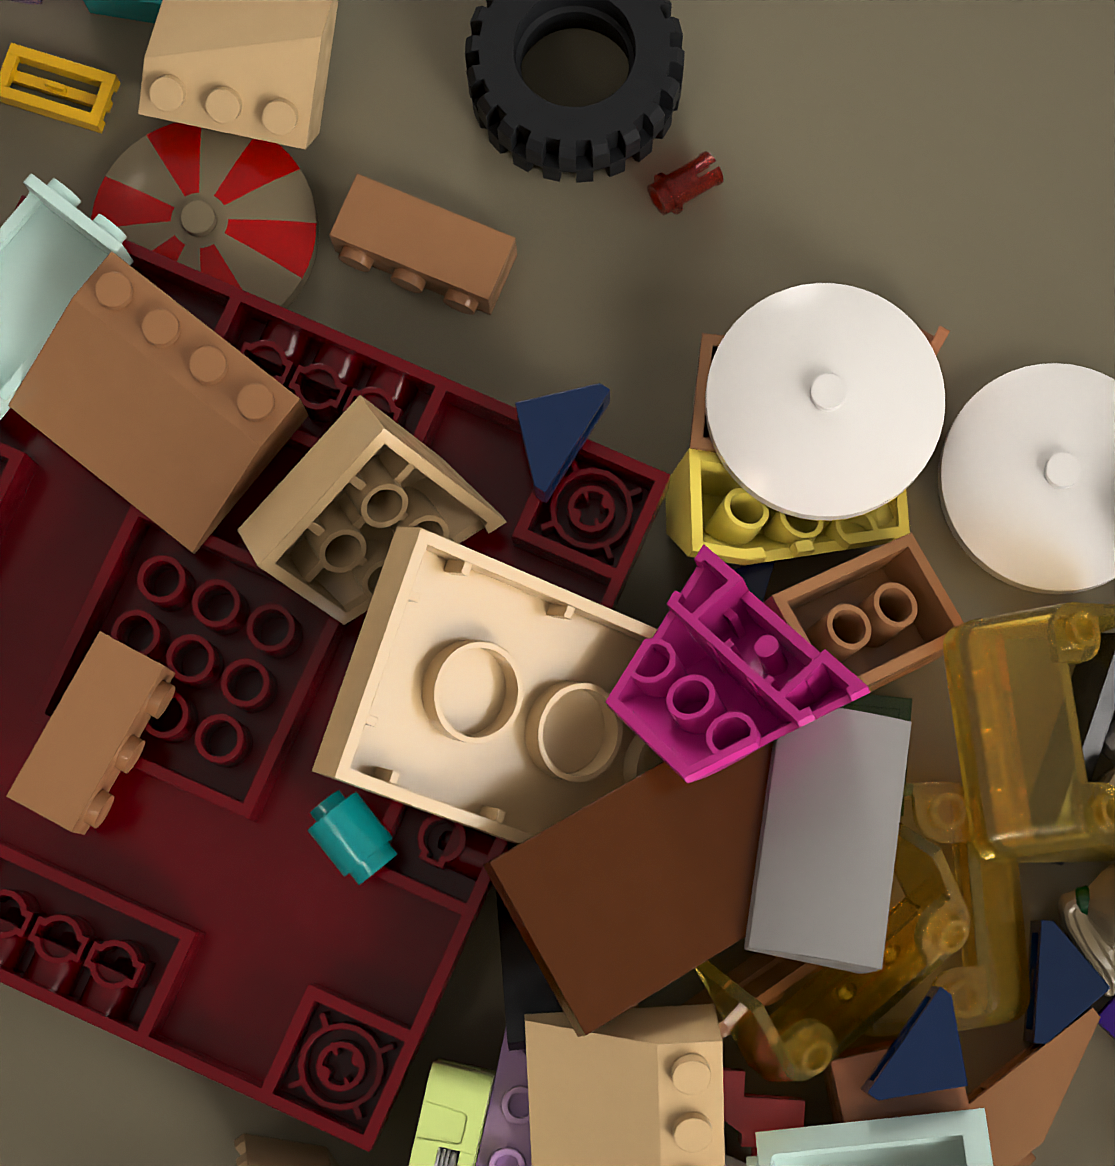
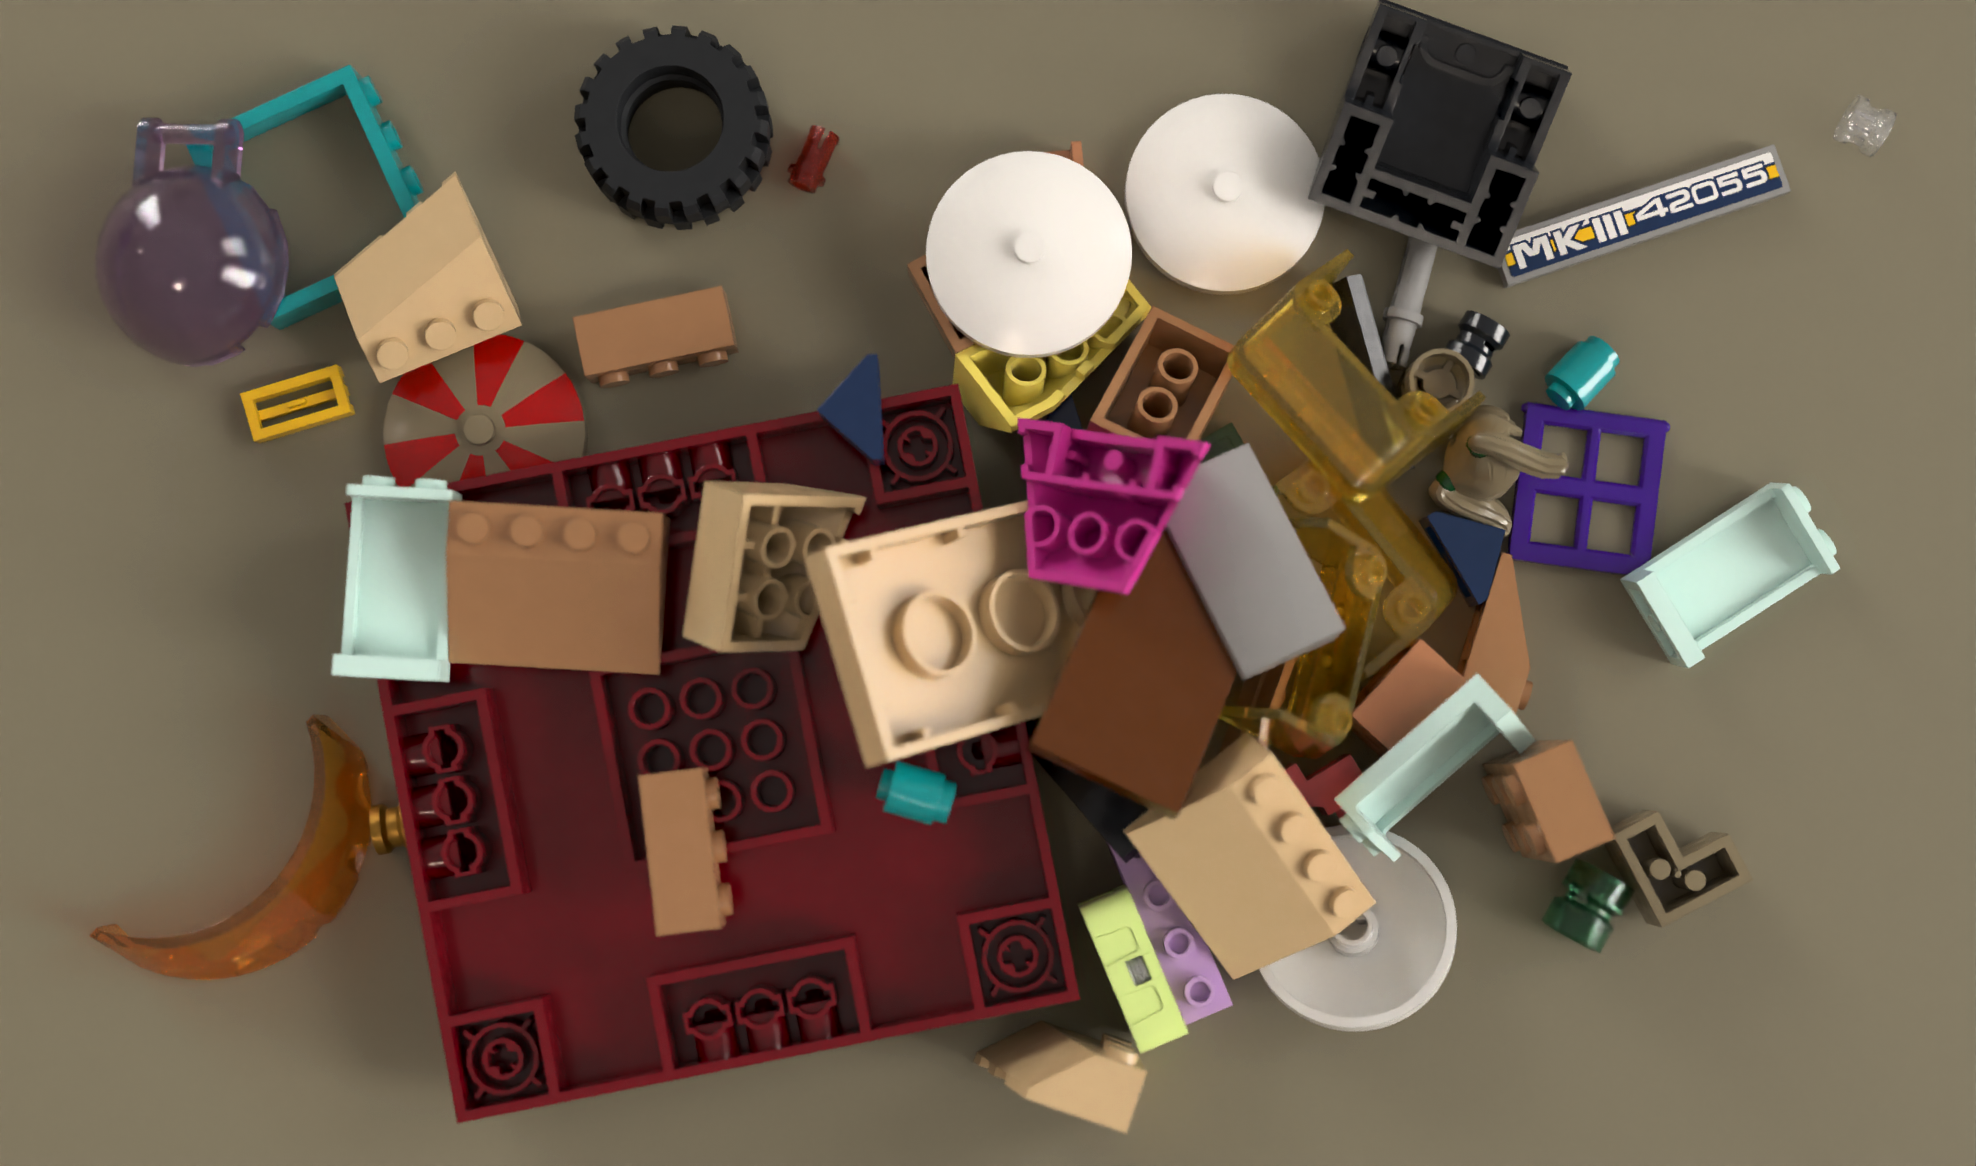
camera: 45 degrees left, 5 degrees up
(924, 1053) = (1410, 665): dark blue slope -> none

